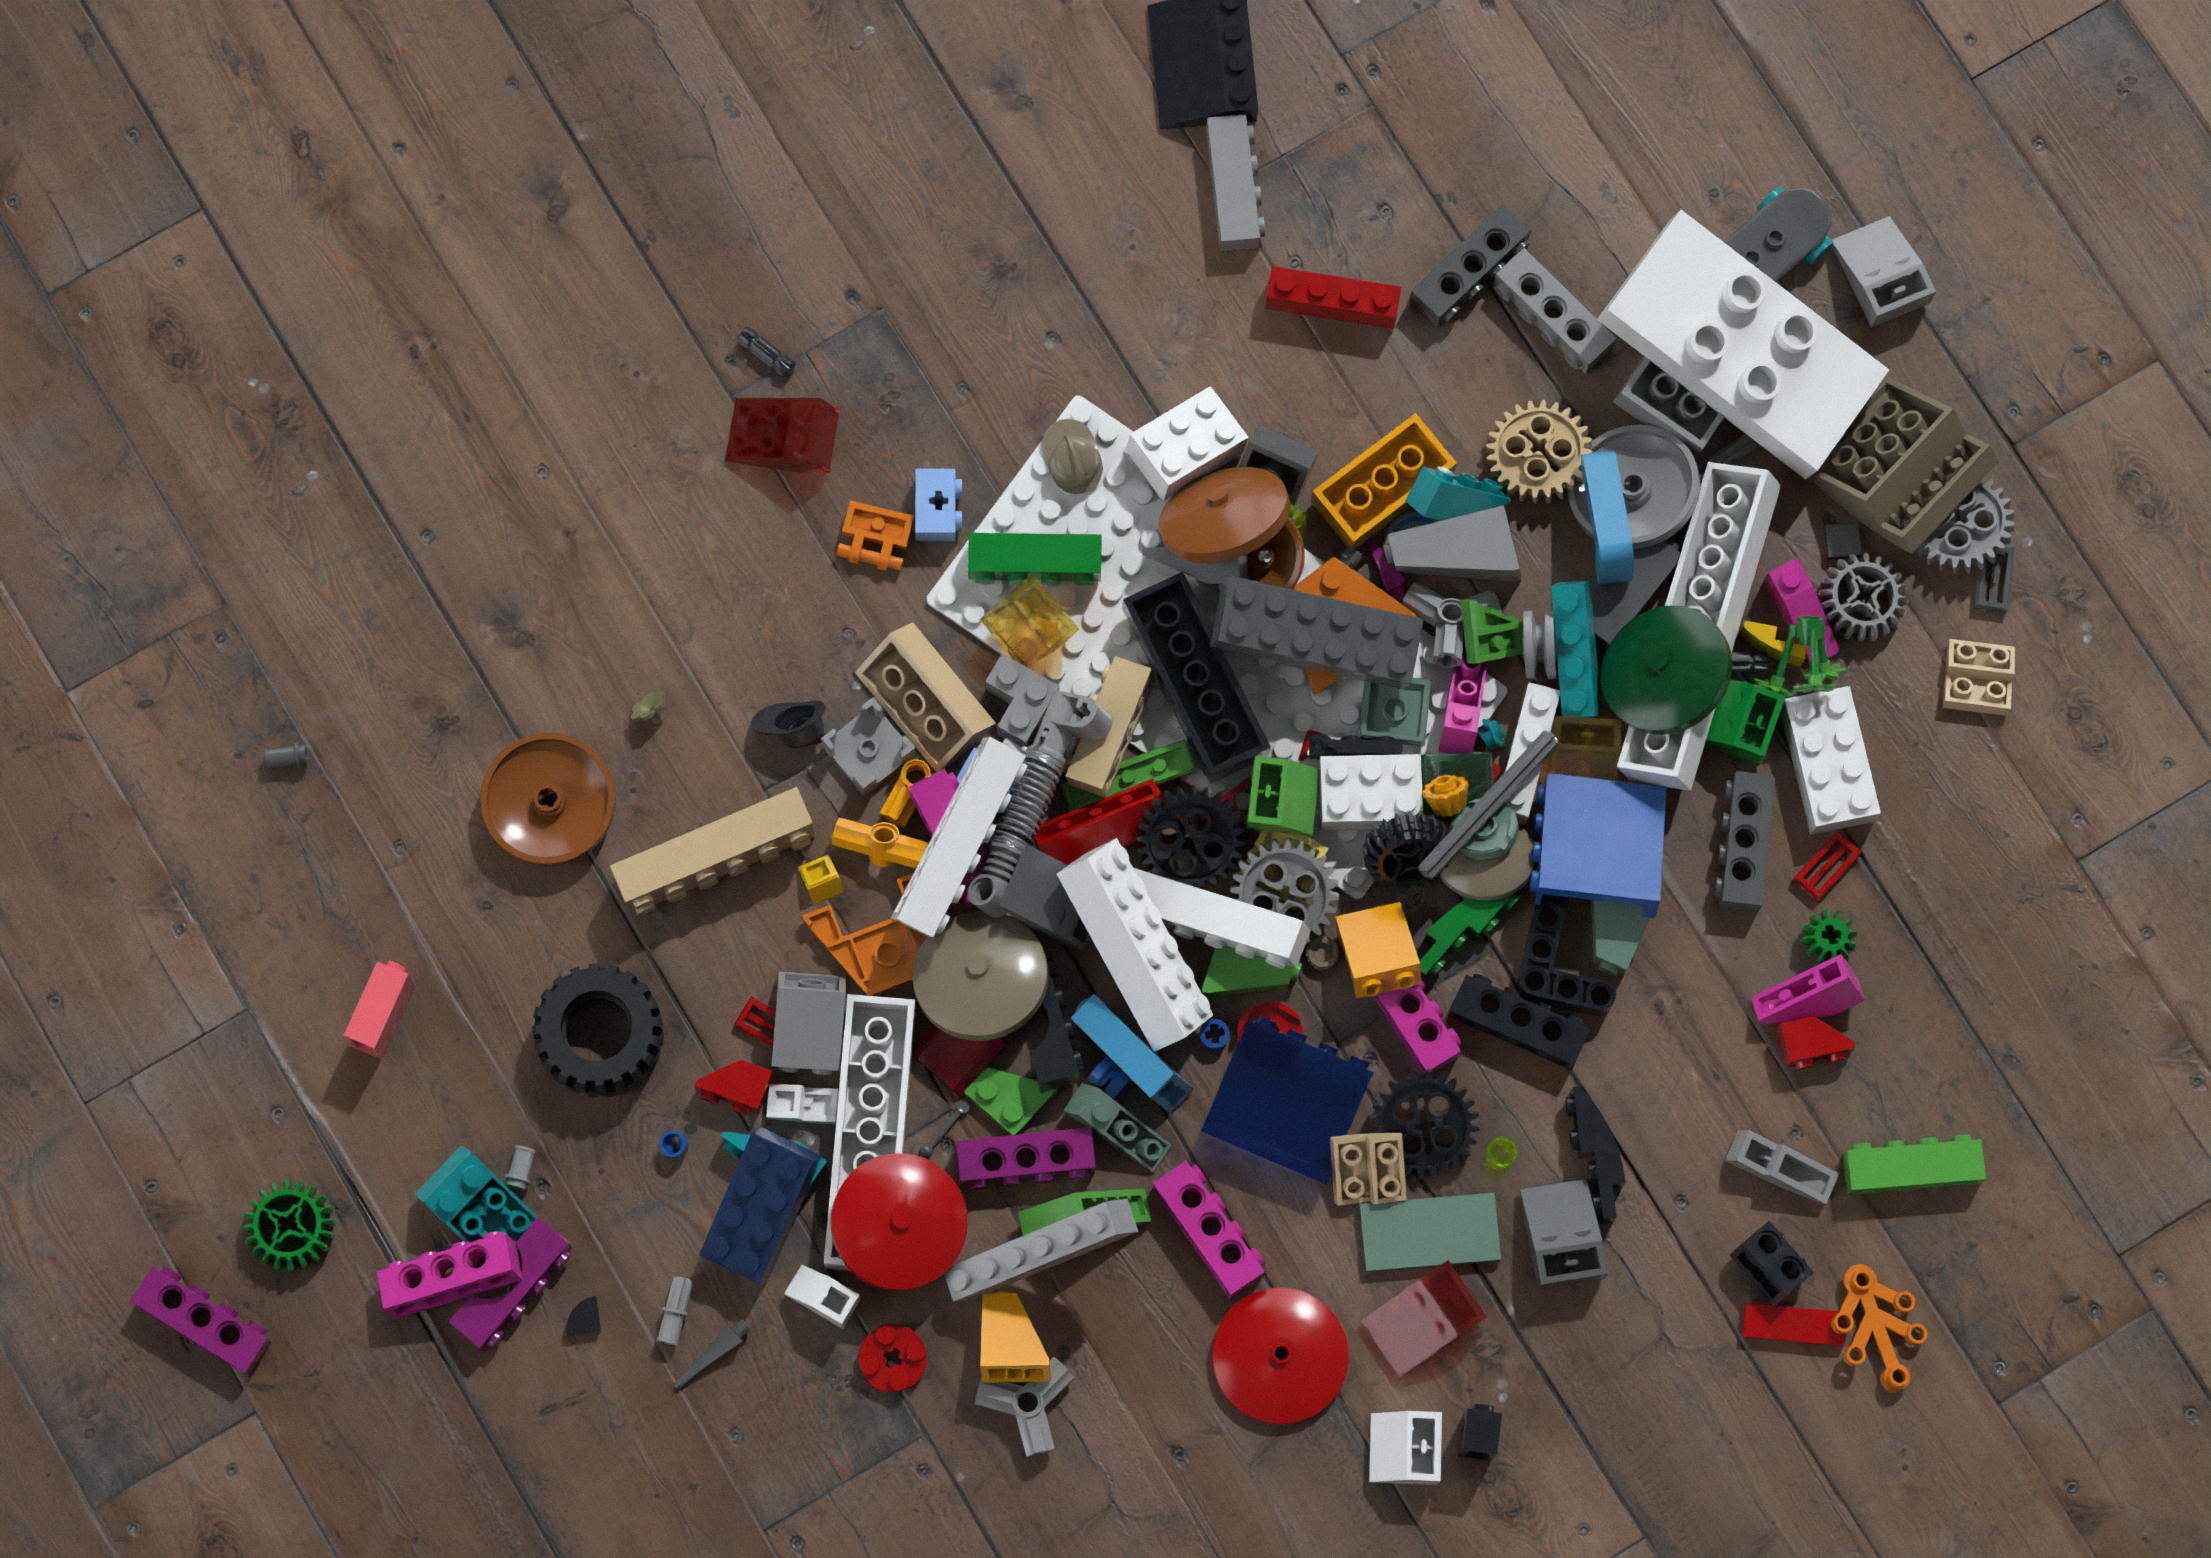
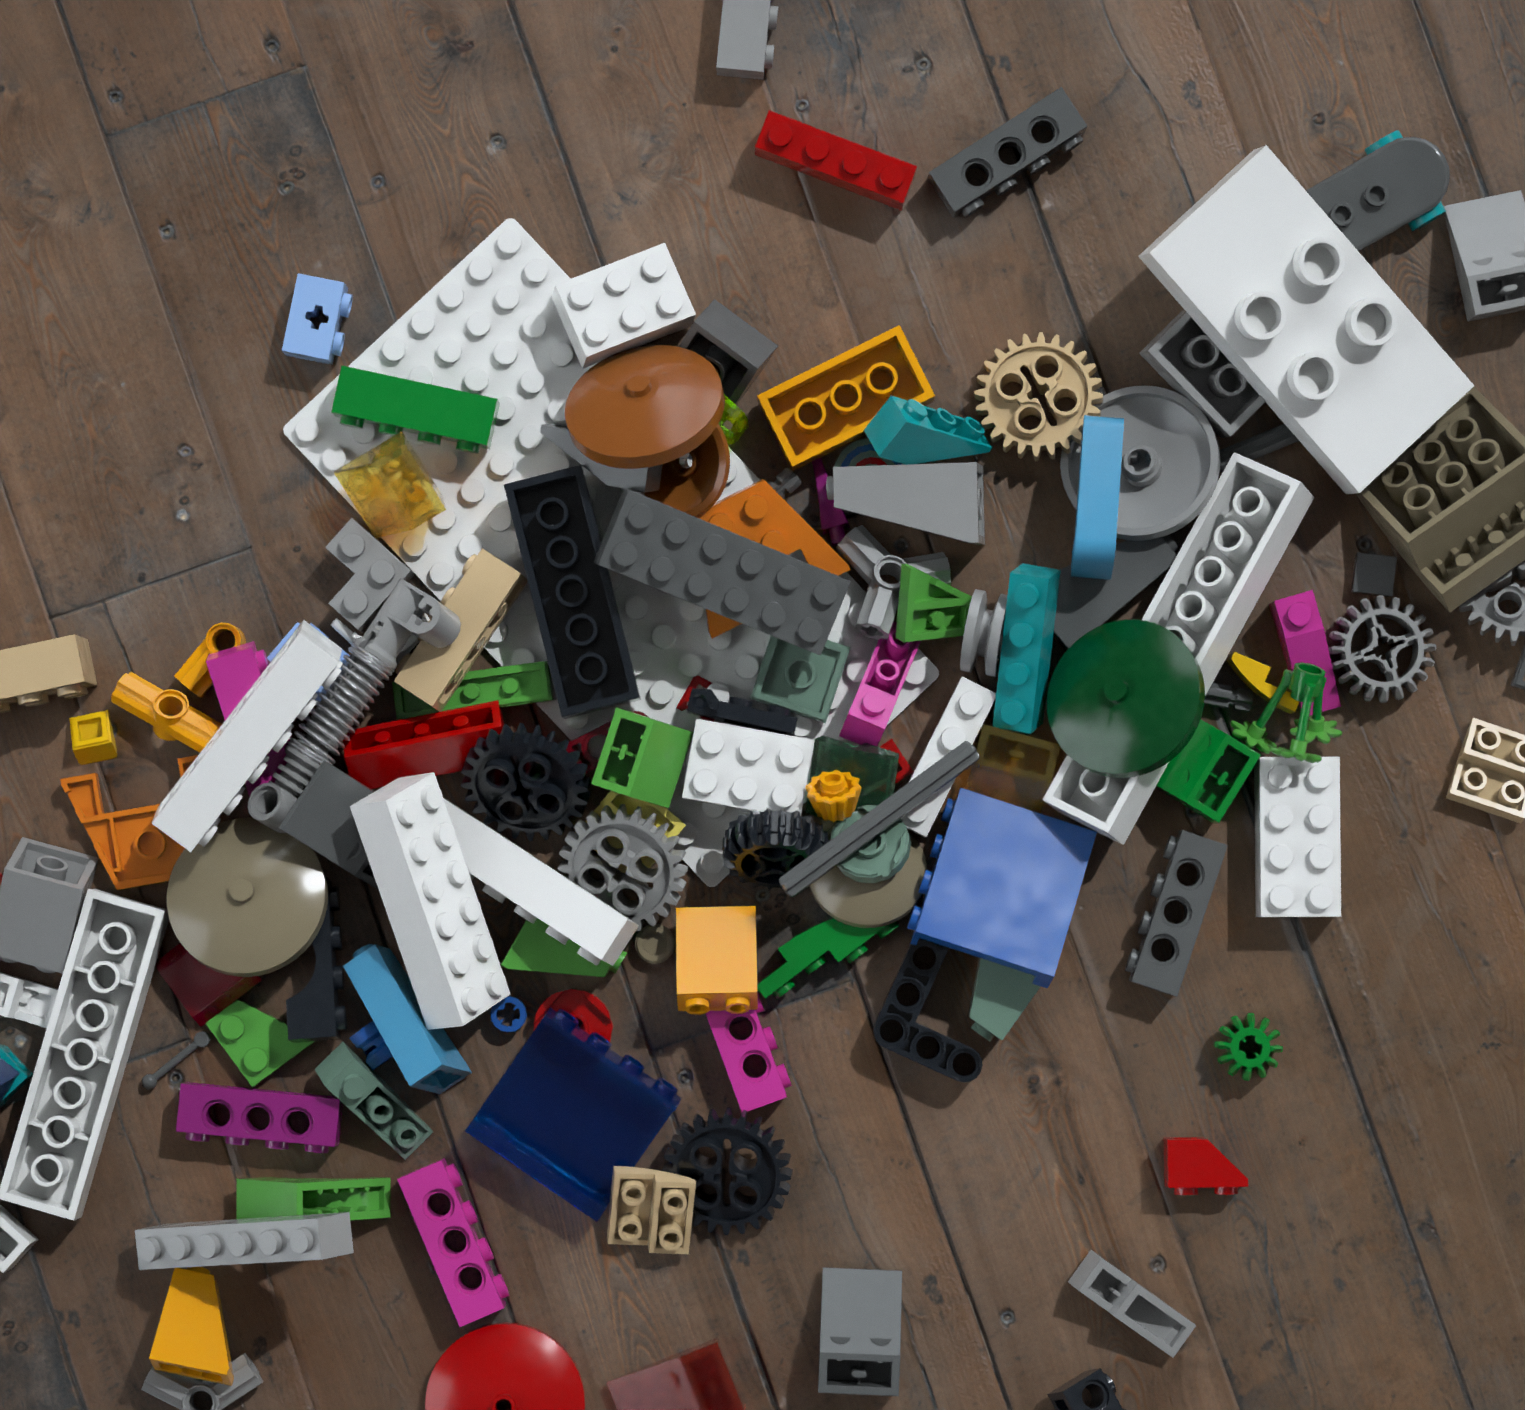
camera: 20 degrees right, 10 degrees up
(766, 351) = (156, 92): black axle -> none
(783, 434) = (155, 197): clear red slope -> none
(794, 722) = (94, 546): black piece -> none
(868, 748) = (178, 595): light grey panel -> none
(876, 526) = (243, 330): orange plate -> none
(887, 1339) = (38, 1315): red plate -> none
(899, 1222) = (91, 1169): red dish -> none
(924, 697) = (255, 547): tan slope -> none
(1072, 456) = (487, 292): dark tan piece -> none
(1430, 1232) = (708, 1296): sand green tile -> none
(1492, 734) = (908, 724): teal plate -> none
(1493, 1160) = (820, 1213): clear neon green bush -> none
(1500, 1025) = (909, 1116): black brick -> none
(1526, 270) = (1072, 172): light grey brick -> none
(1595, 1140) = (919, 1228): black slope -> none
(1809, 887) = (1238, 978): red tile -> none
(1816, 992) = (1210, 1110): dark pink slope -> none
(1913, 1166) = (1285, 1335): bright green brick -> none

